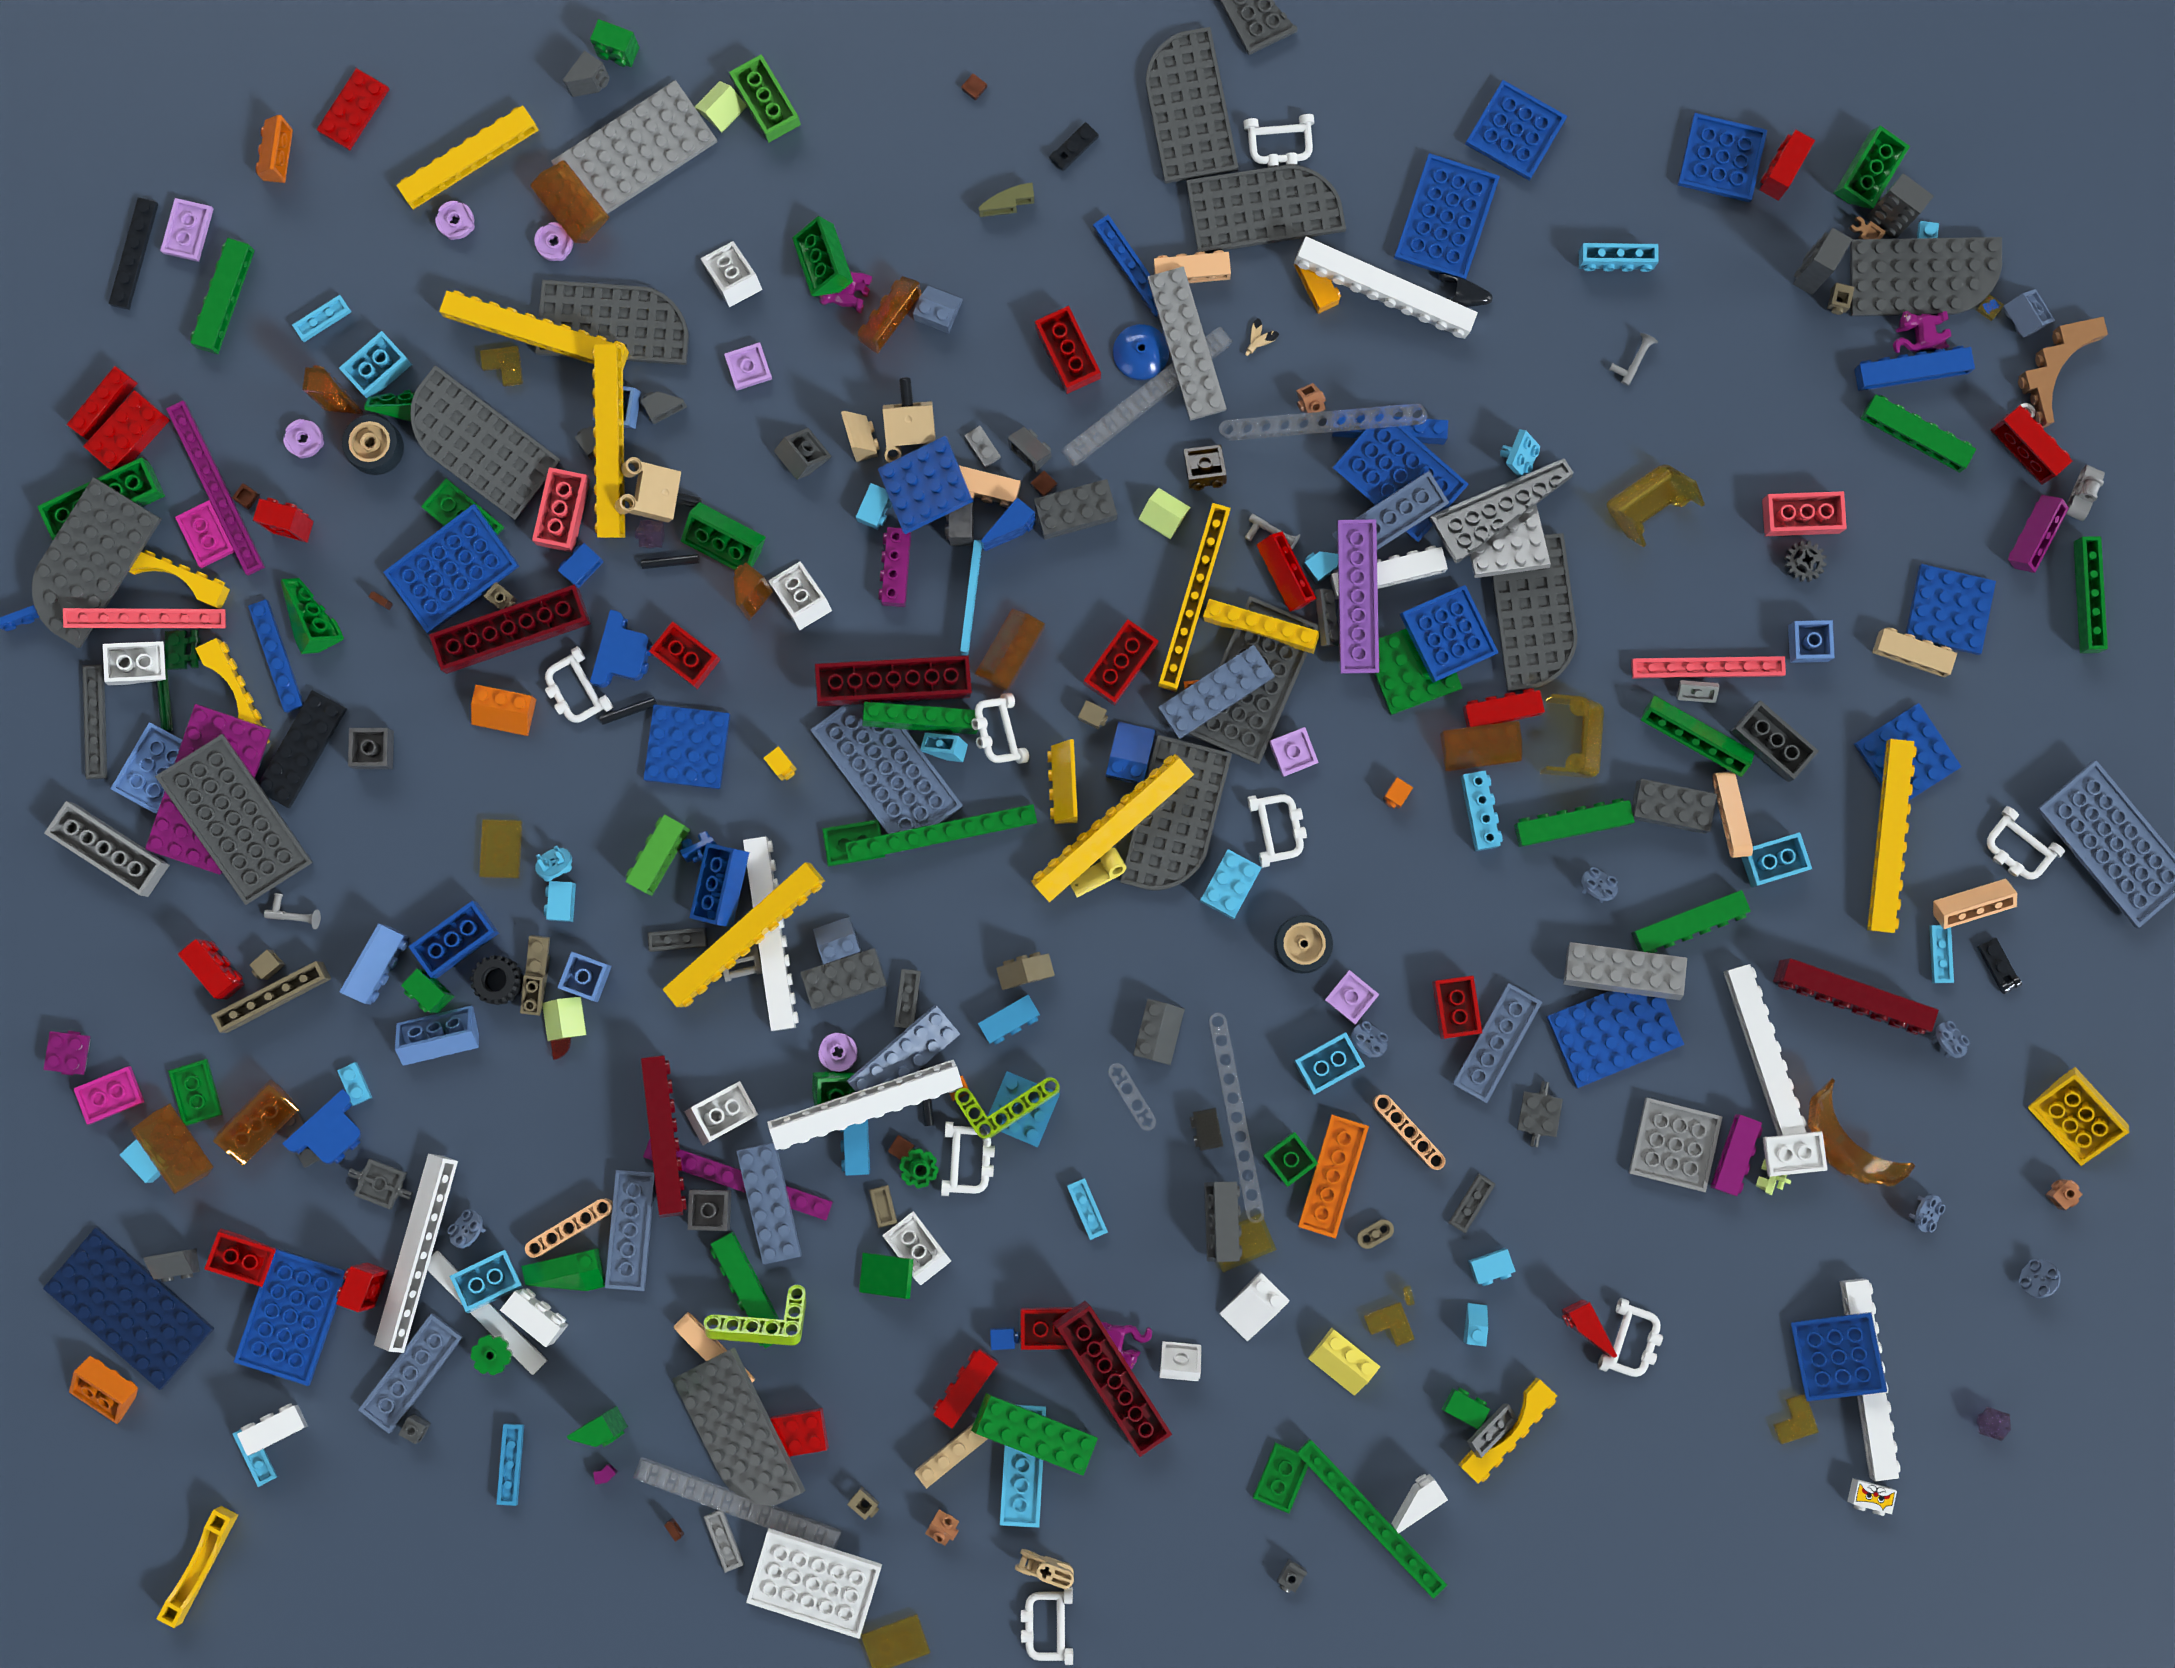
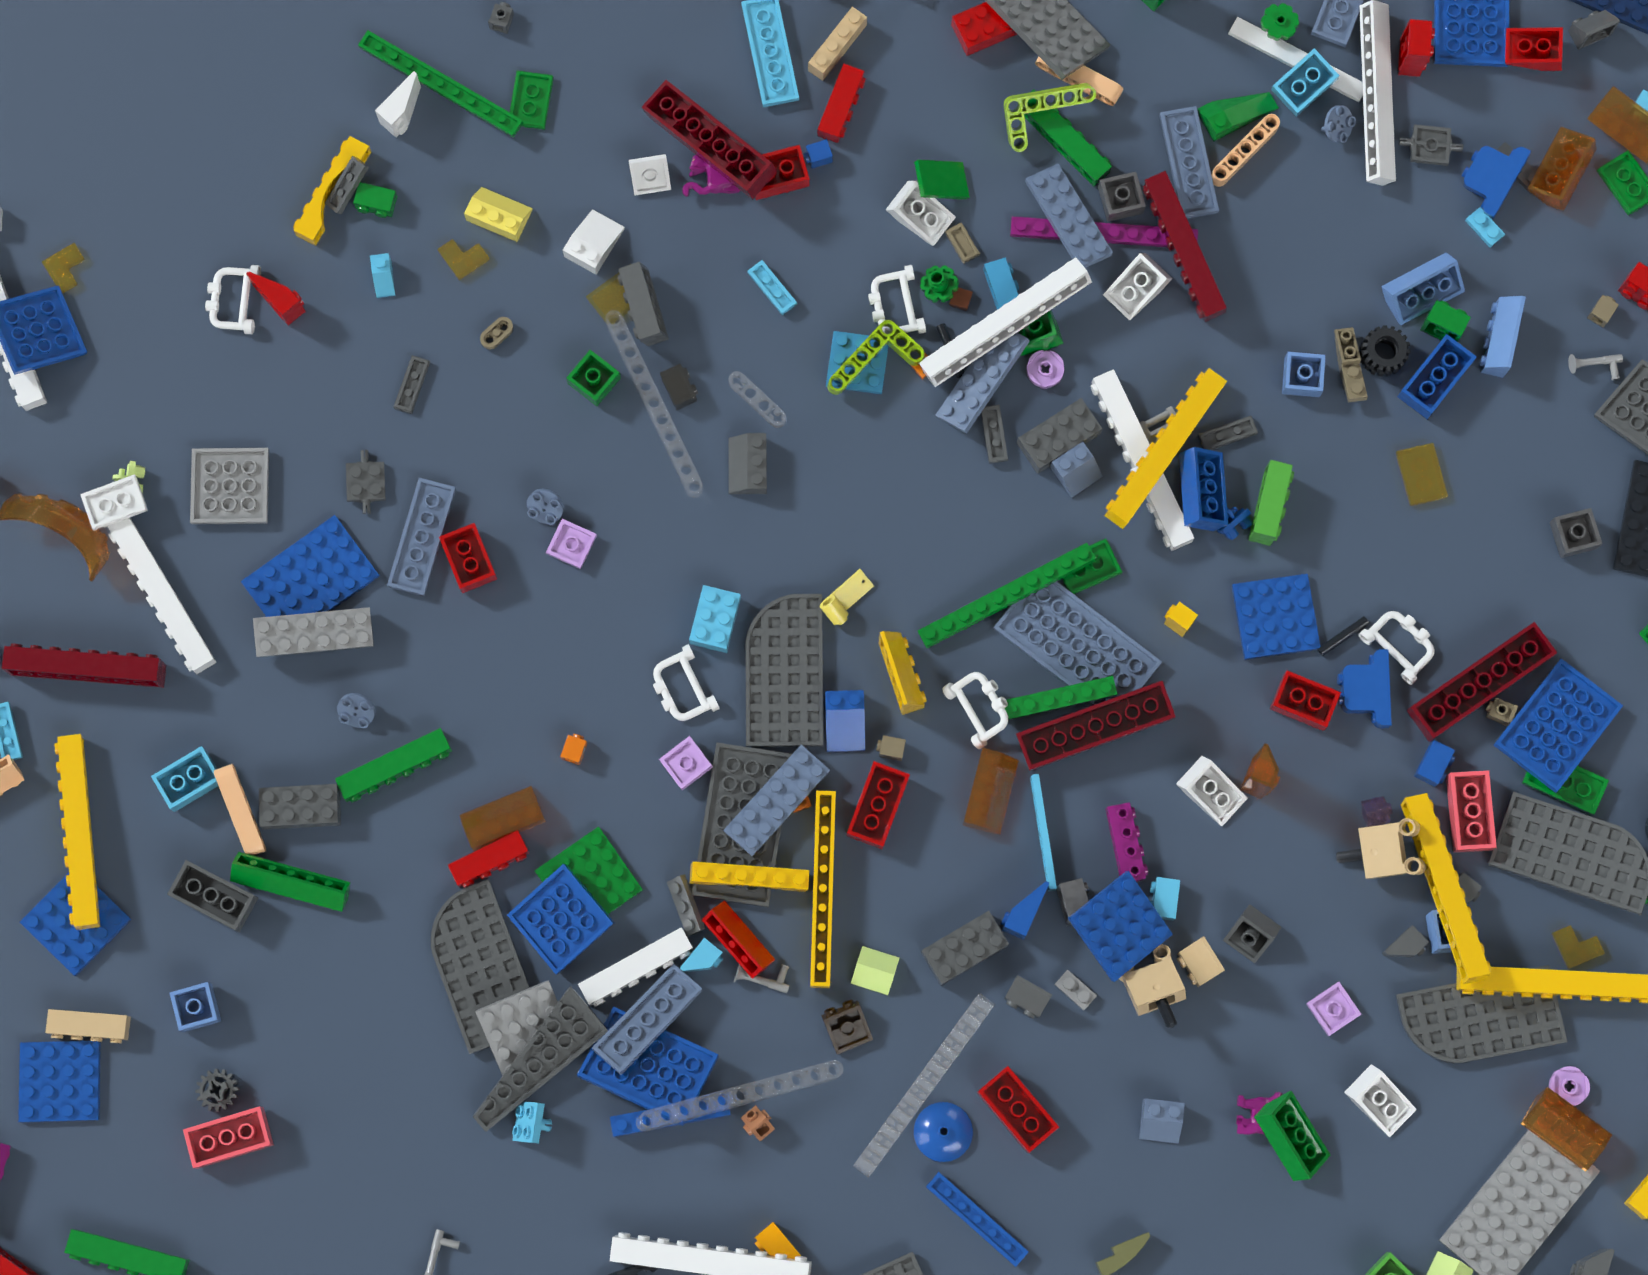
camera: 165 degrees right, 5 degrees down
(271, 997) = (1588, 282): dark tan brick -> none
(380, 600) = (1616, 678): copper tile -> none
(502, 710) = (1463, 604): orange slope -> none
(534, 1316) = (1251, 63): white brick -> none
(553, 863) = (1359, 475): medium azure plate -> none
(560, 901) = (1349, 439): medium azure brick -> none
(560, 1047) = (1306, 308): clear red tile -> none
(564, 1018) = (1310, 333): yellowish green slope -> none
(670, 561) = (1348, 792): black piece -> none
(721, 537) = (1304, 827): green slope -> none
(890, 313) = (1208, 1099): clear orange slope -> none
(944, 746) = (1027, 678): medium azure slope -> none
(991, 486) = (1057, 948): light nougat brick -> none
(1009, 1020) = (892, 438): dark azure brick -> none
(1025, 970) = (889, 485): dark tan brick -> none
(1034, 1434) = (767, 75): green brick -> none
(1044, 483) = (1003, 968): copper tile -> none
(1112, 827) = (843, 641): yellow brick -> none
(1186, 343) = (899, 1147): light grey plate -> none
(1198, 267) = (913, 1232): light nougat brick -> none
(1257, 340) = (828, 1176): tan piece -> none
(1290, 951) = (630, 593): wheel -> none
(1329, 1063) = (578, 474): medium azure brick -> none
(1333, 1176) = (548, 375): orange plate -> none
(1358, 596) = (660, 930): medium lavender plate -> none
(1408, 1295) = (452, 285): clear yellow tile -> none
(1417, 1136) = (491, 440): light nougat beam -> none
(1480, 810) = (488, 753): medium azure brick -> none
(1492, 1266) = (380, 330): medium azure brick -> none
(1588, 761) = (399, 876): clear yellow windscreen -> none
(1649, 496) = (393, 1112): clear yellow windscreen -> none
(1691, 922) = (258, 698): green brick -> none
(1698, 691) = (298, 928): light grey plate -> none
(1708, 667) = (293, 956): coral plate -> none
(1736, 1155) = (169, 489): magenta brick -> none

